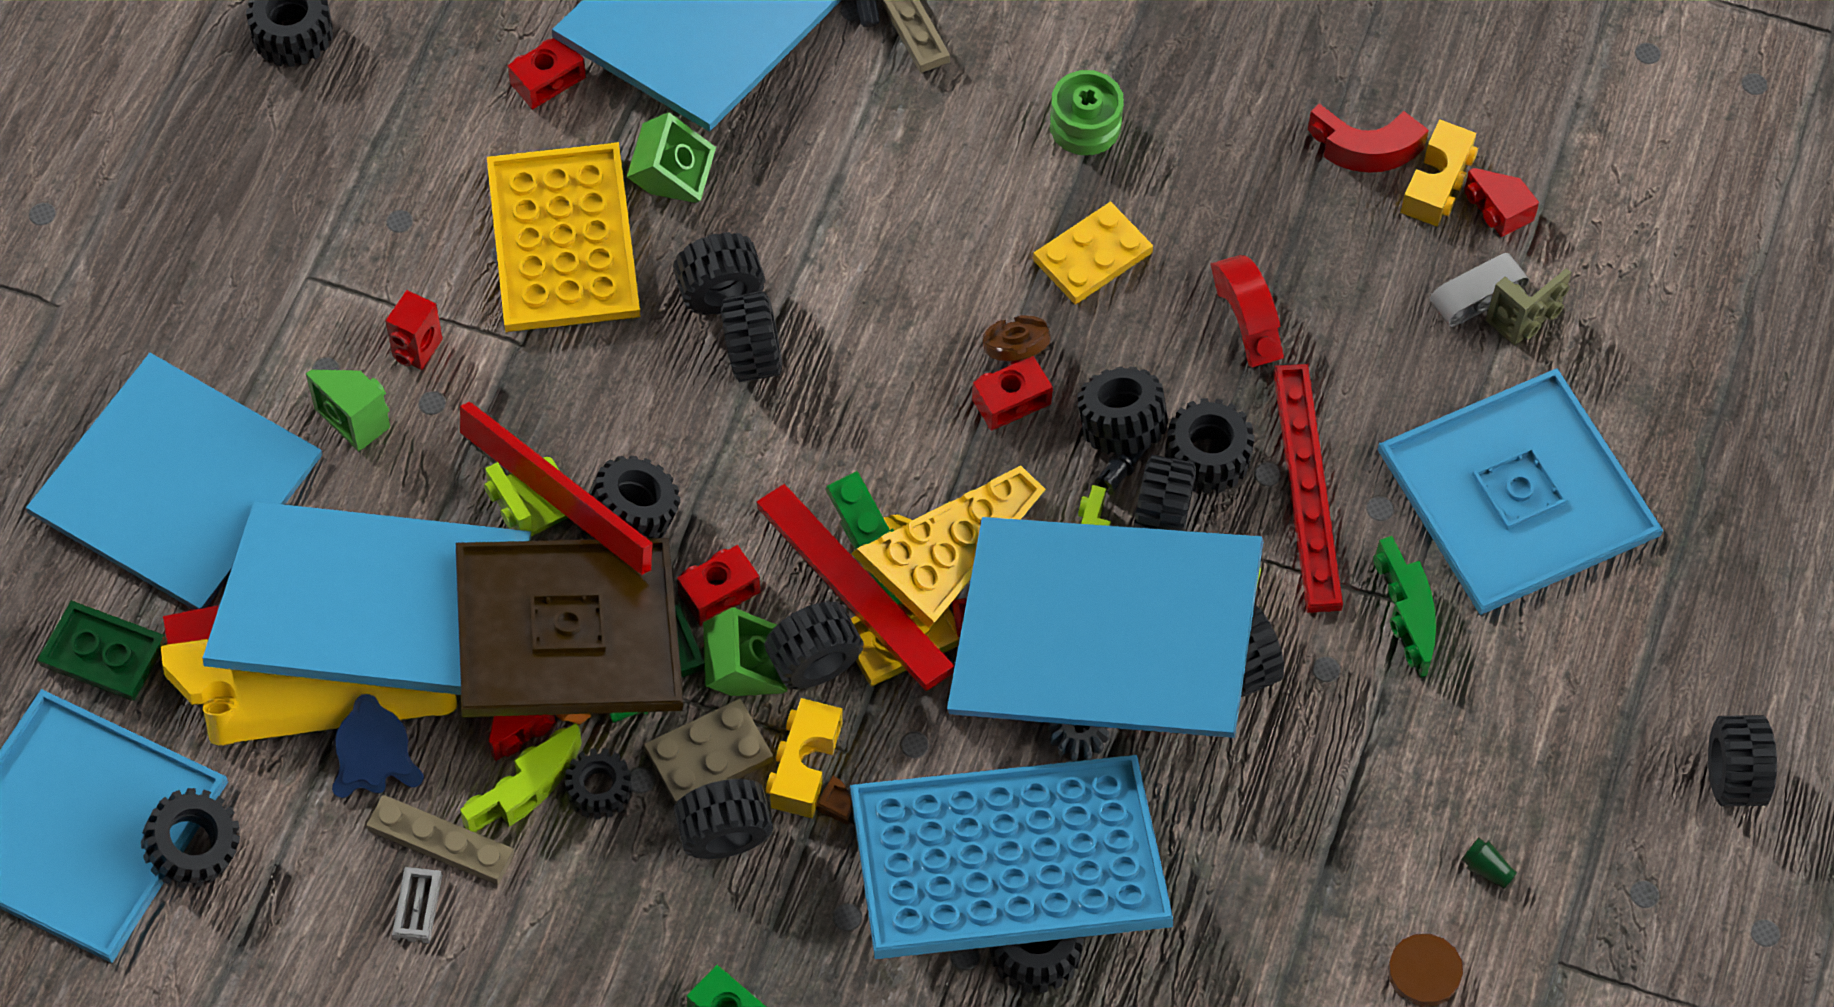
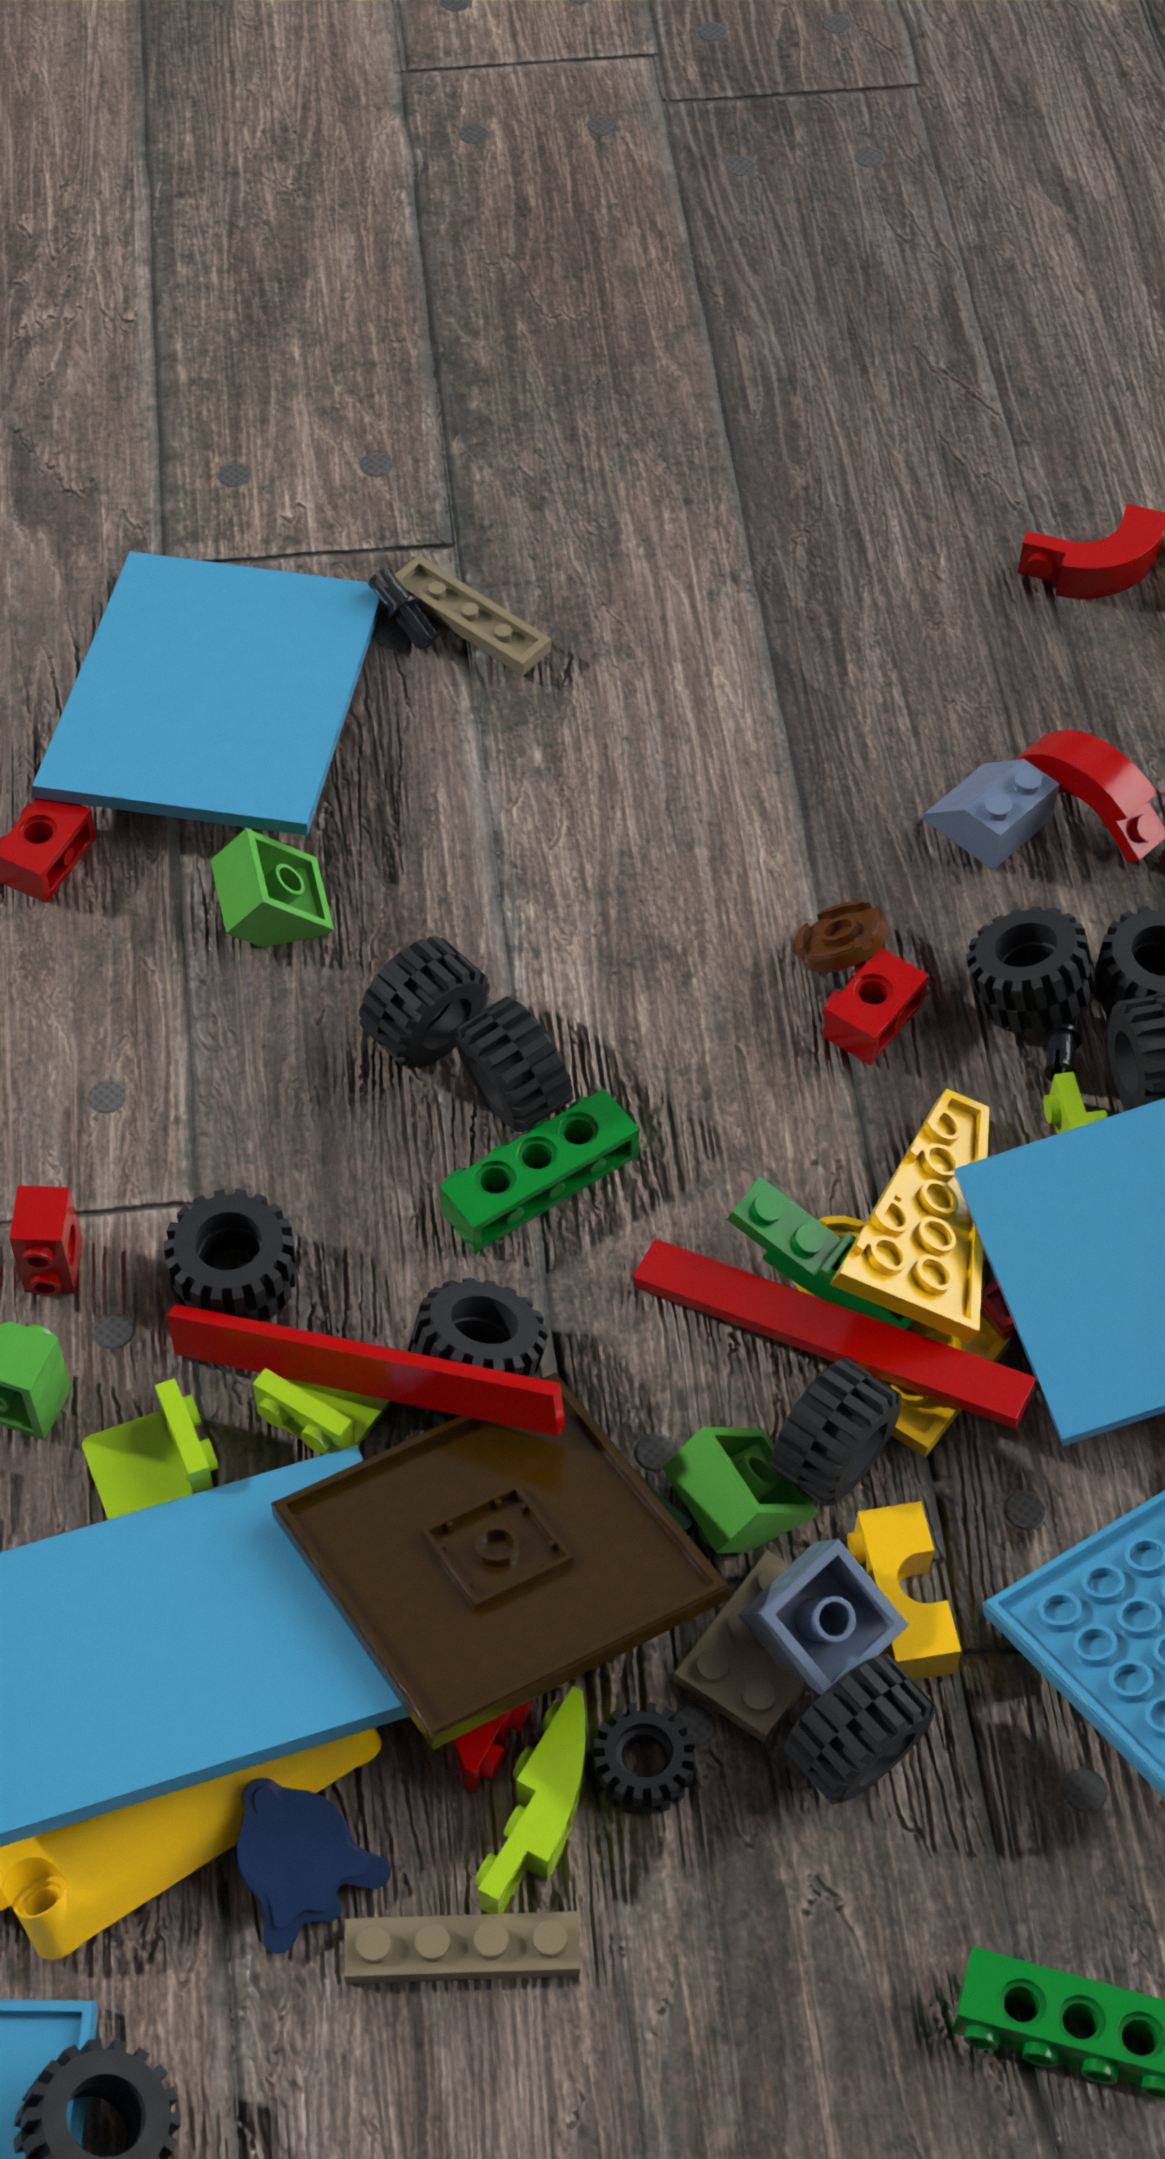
camera: 25 degrees left, 5 degrees down
(411, 487) = (151, 1456): none -> lime bracket
(413, 934) = (498, 2112): light grey tile -> none
(513, 365) = (224, 1225): none -> black tyre
(562, 237) = (180, 1044): yellow plate -> none
(709, 600) = (657, 1379): red brick -> none
(740, 746) = (823, 1616): none -> sand blue slope
(751, 420) = (528, 1192): none -> green brick
(835, 801) = (977, 1634): reddish brown tile -> none
(1086, 112) = (758, 642): bright green wheel -> none
(1092, 252) = (861, 803): yellow plate -> none
(1176, 294) = (996, 809): none -> sand blue slope

